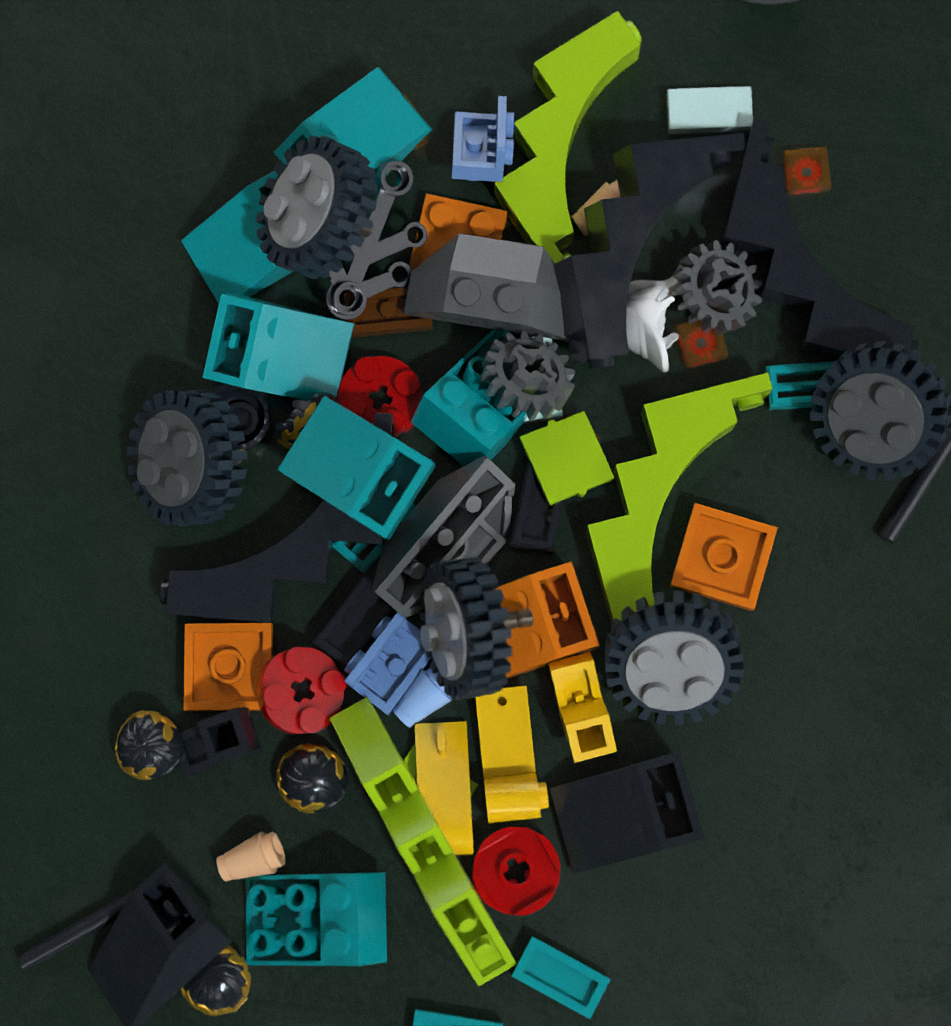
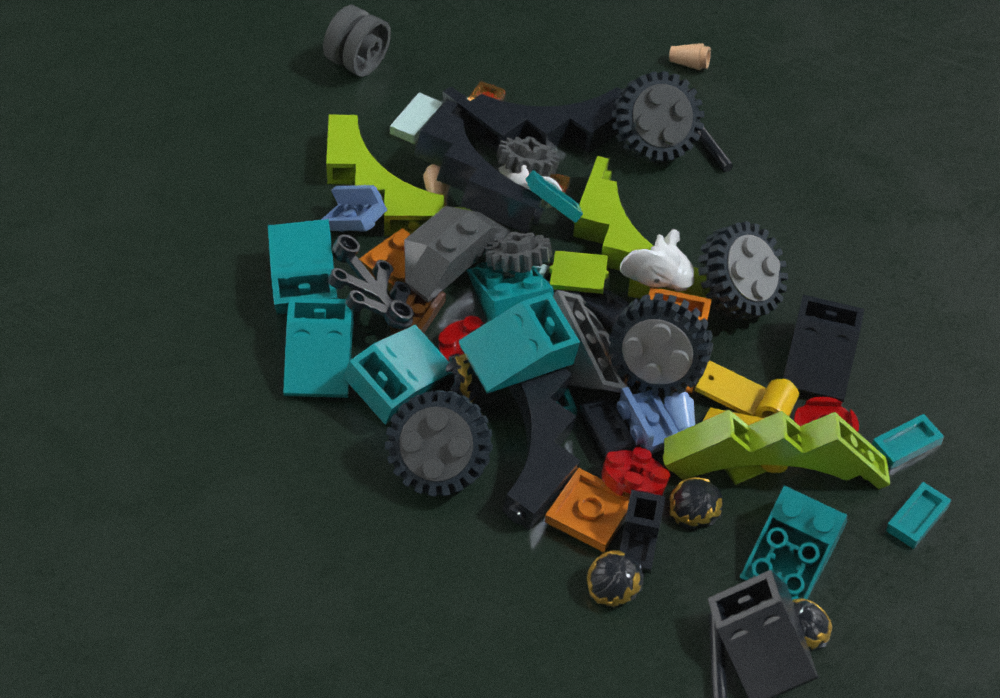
camera: 65 degrees left, 30 degrees down
(252, 858) = (731, 560): light nougat cone -> none
(317, 207) = (342, 270): black wheel -> none
(582, 707) = (745, 342): yellow brick -> none
(609, 566) = (661, 265): none -> white piece
(638, 365) = (554, 196): none -> teal tile
(723, 557) = (693, 229): orange plate -> none
(790, 370) = (622, 161): teal tile -> none

